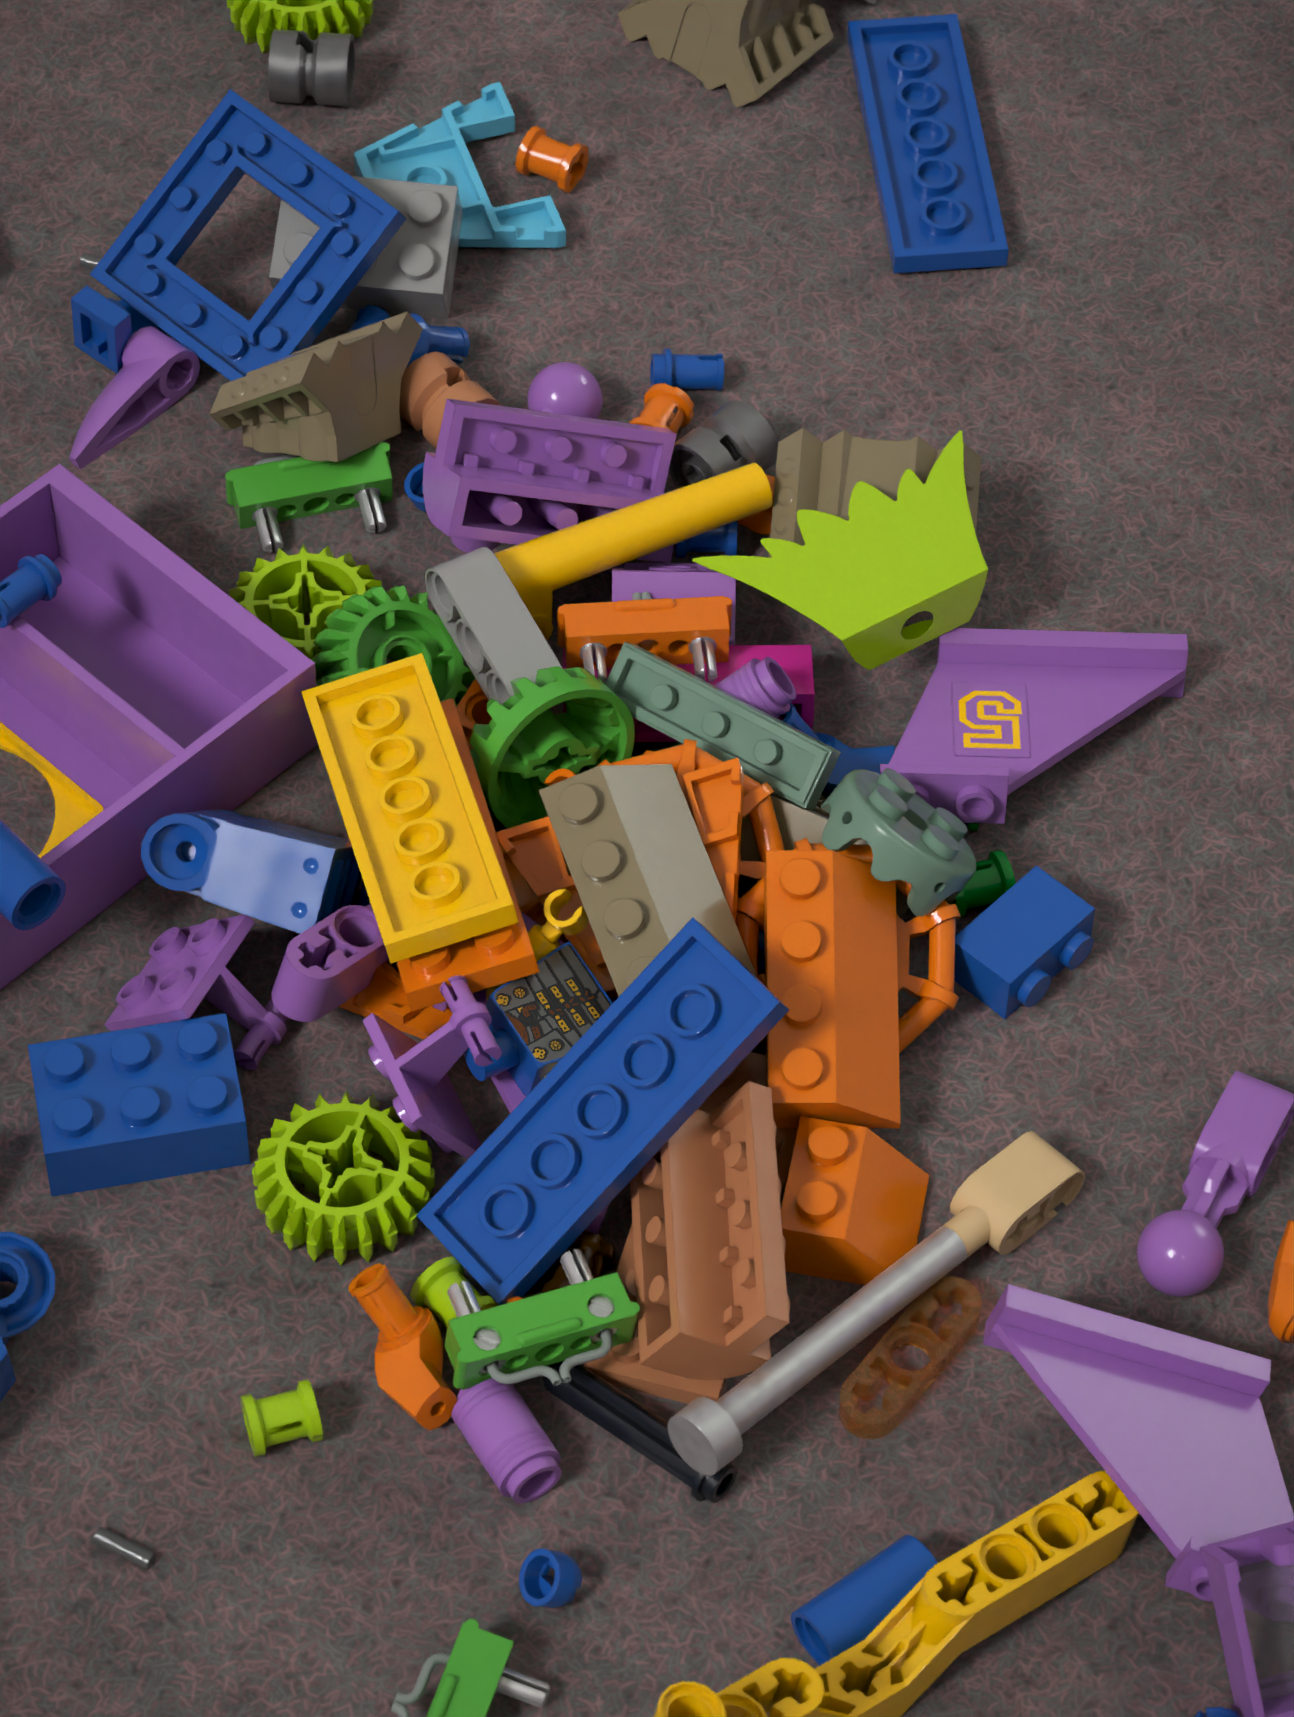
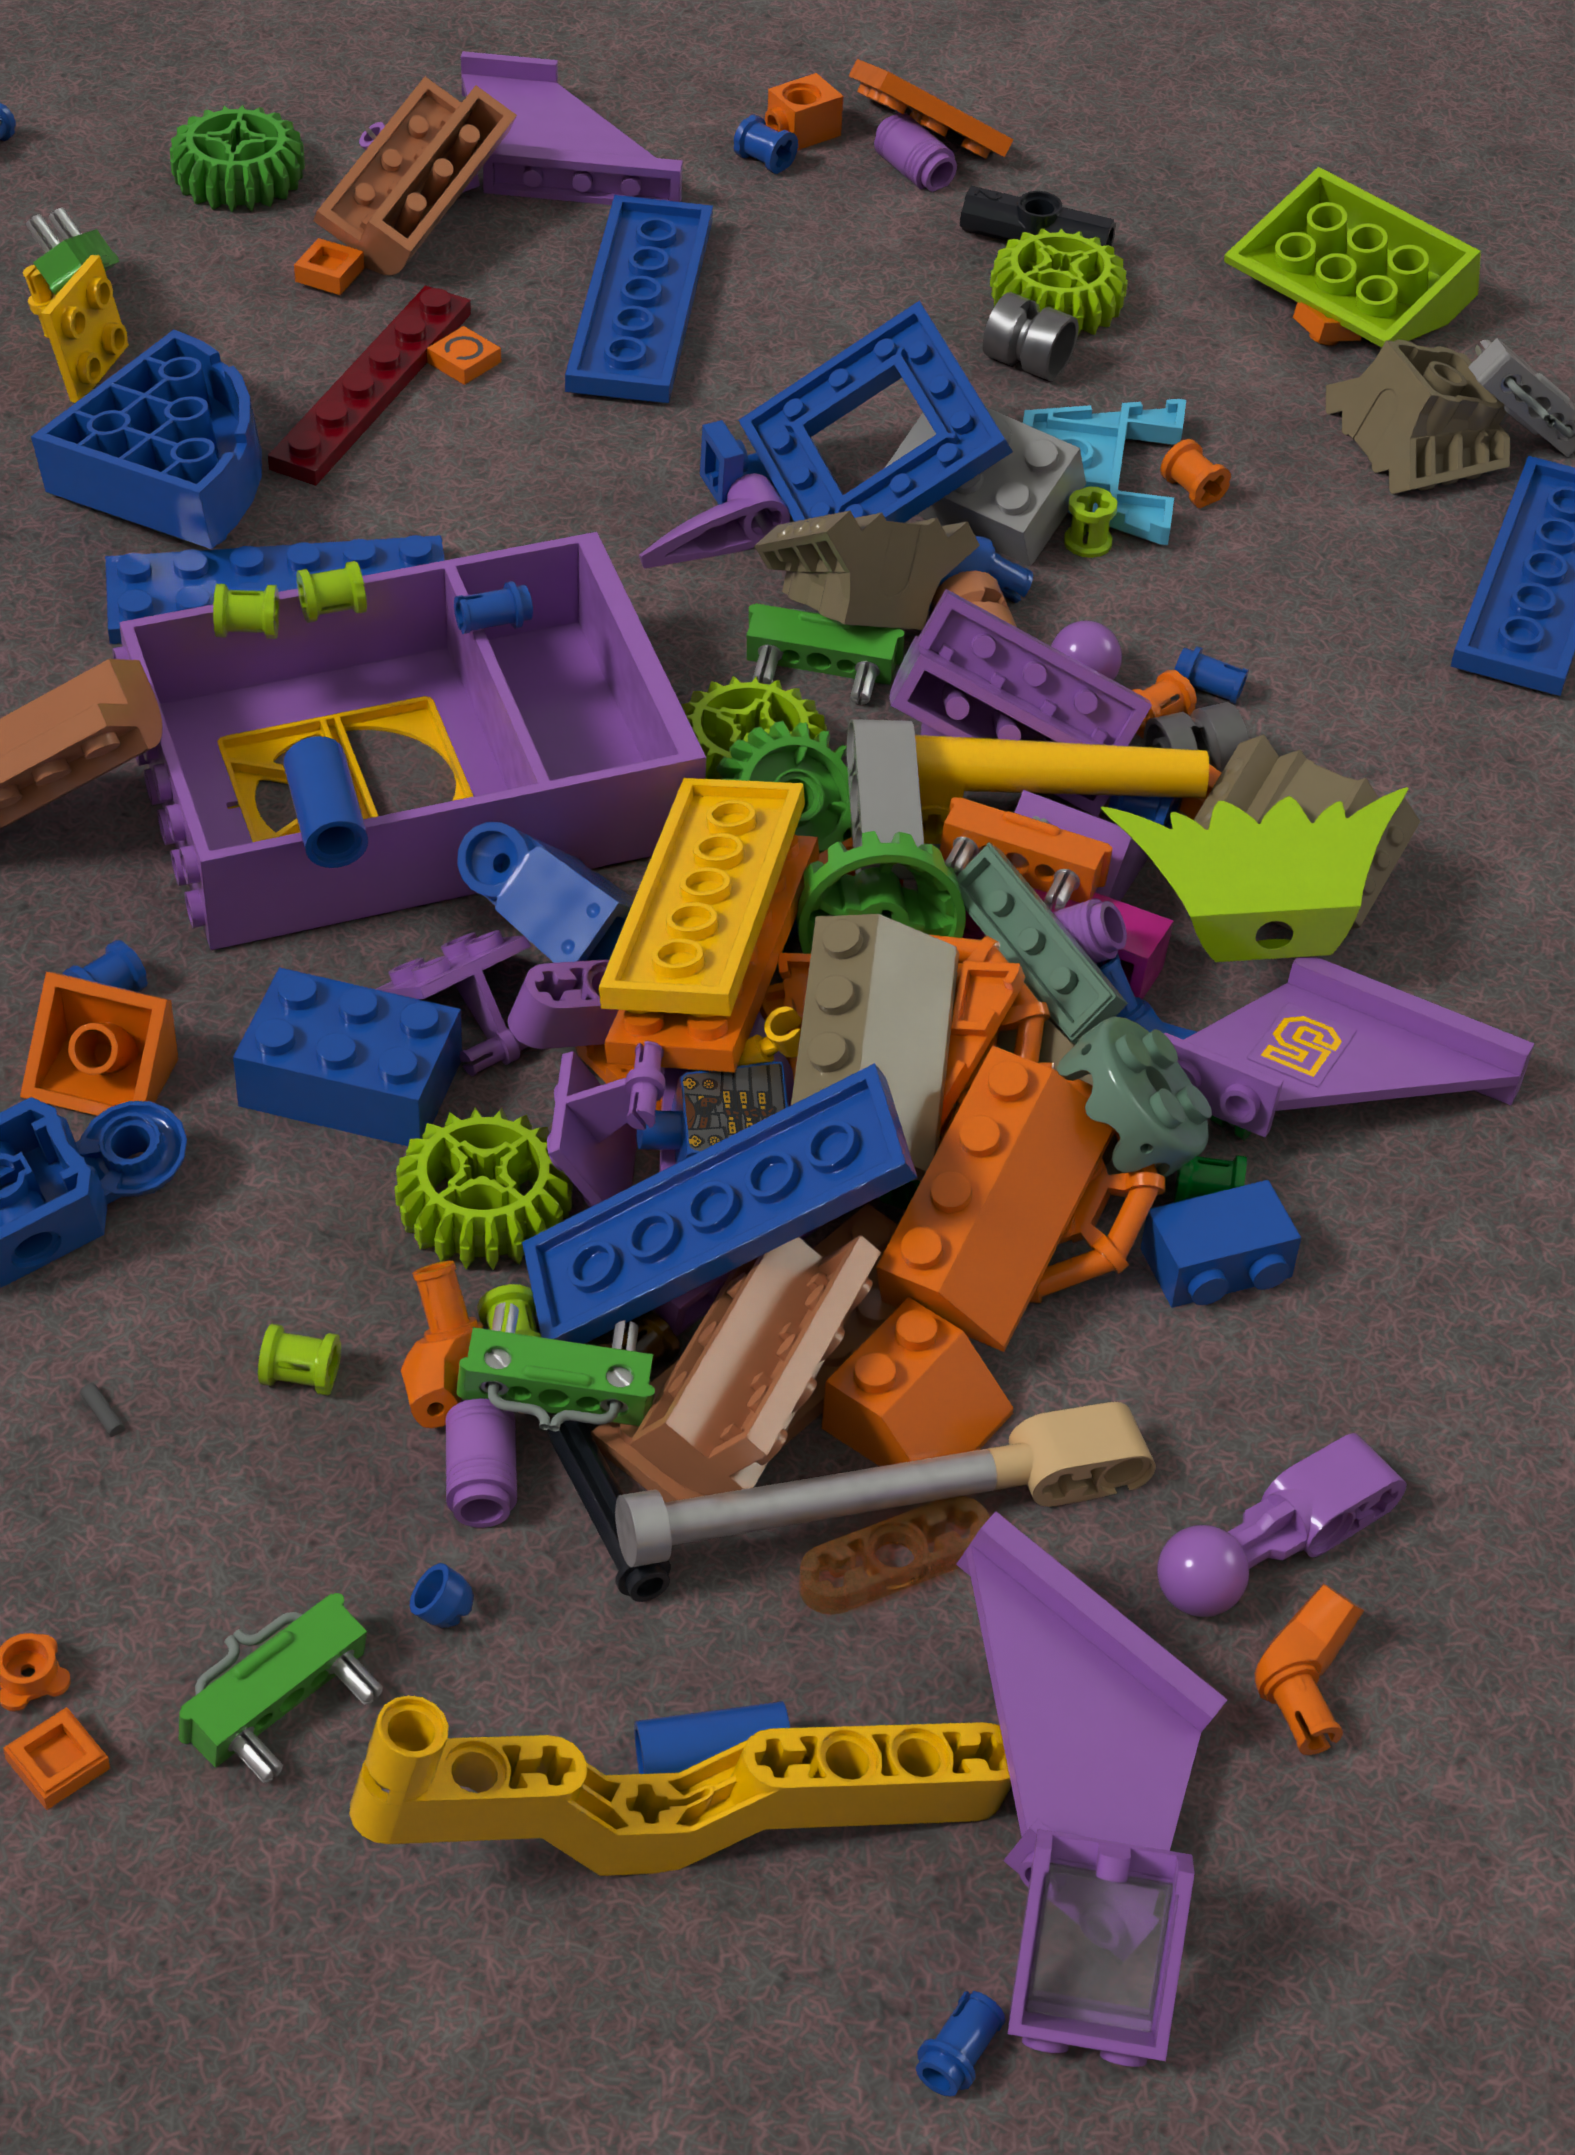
camera: 25 degrees right, 5 degrees down
(498, 240) = (1086, 520): none -> lime bush

